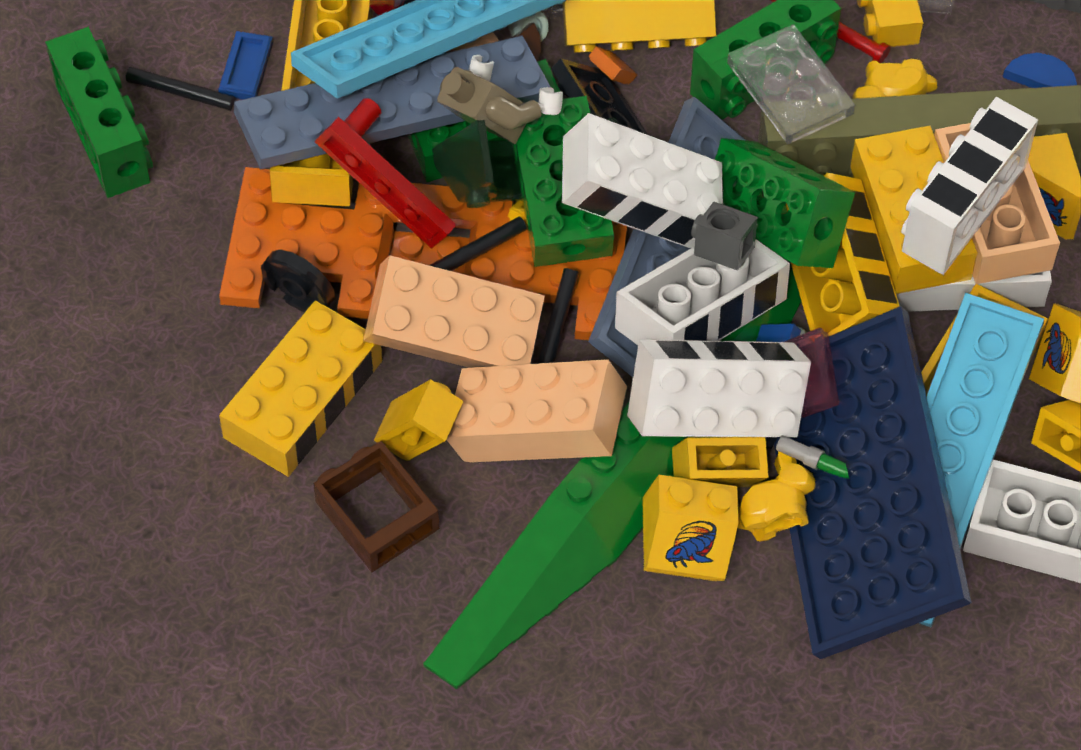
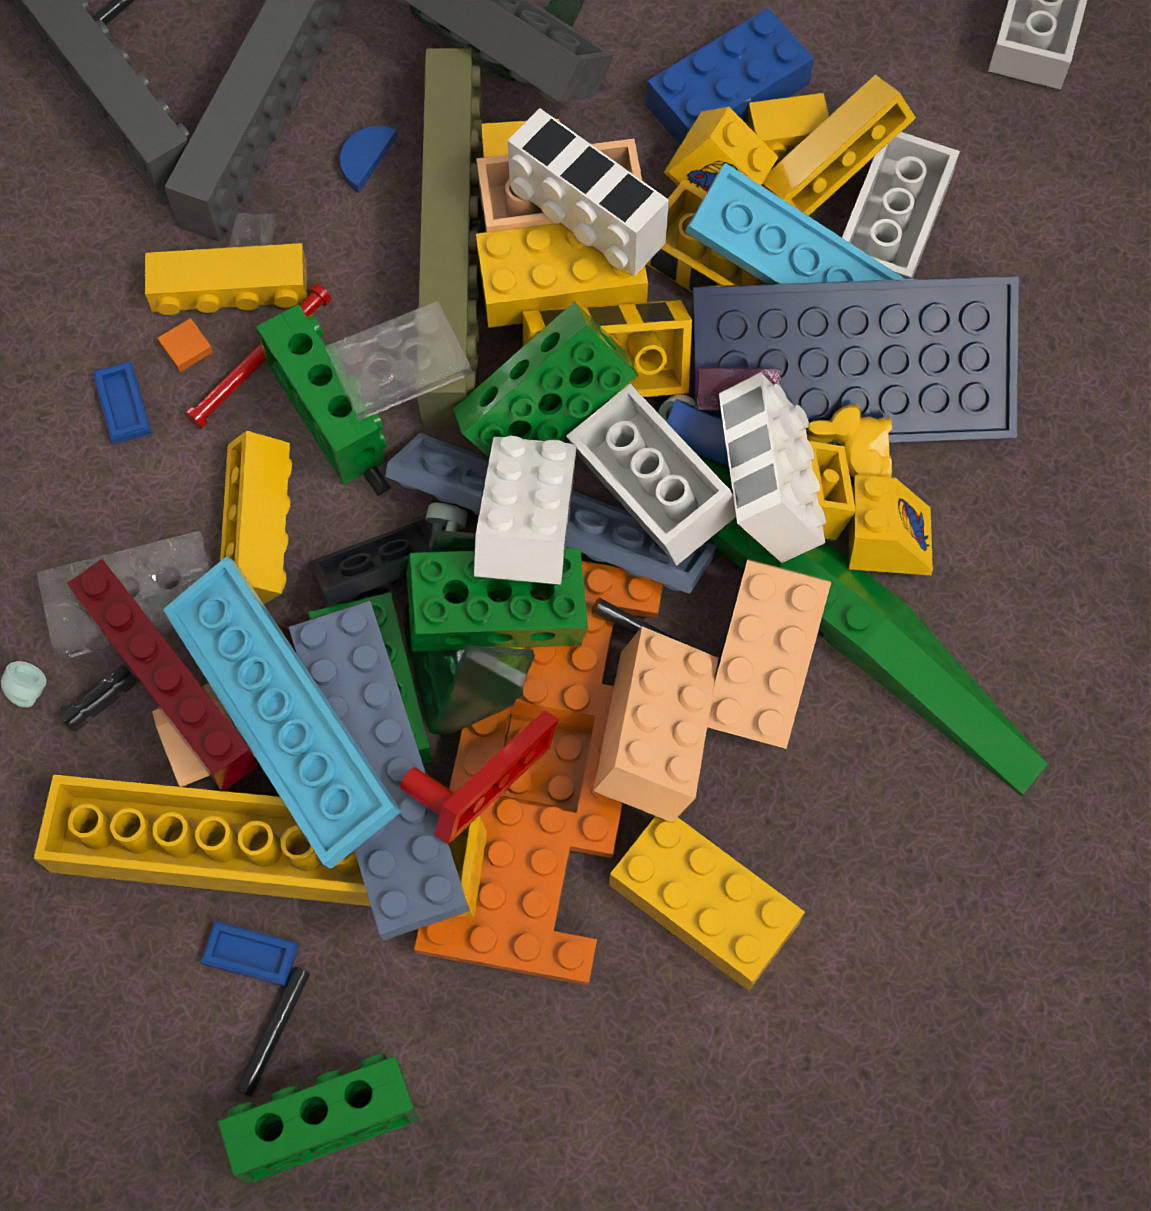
camera: 85 degrees left, 10 degrees up
(297, 280) = (584, 892): black tile -> none
(396, 536) = (885, 805): reddish brown window -> none
(419, 420) = (765, 772): yellow brick -> none
(475, 98) = (421, 653): dark tan torso -> none
(481, 245) = (562, 707): black bar -> none
(612, 65) = (308, 553): orange tile -> none
(724, 235) = (598, 420): dark grey brick -> none
(812, 457) = (832, 400): light grey piece -> none
(896, 80) = (370, 288): yellow animal -> none

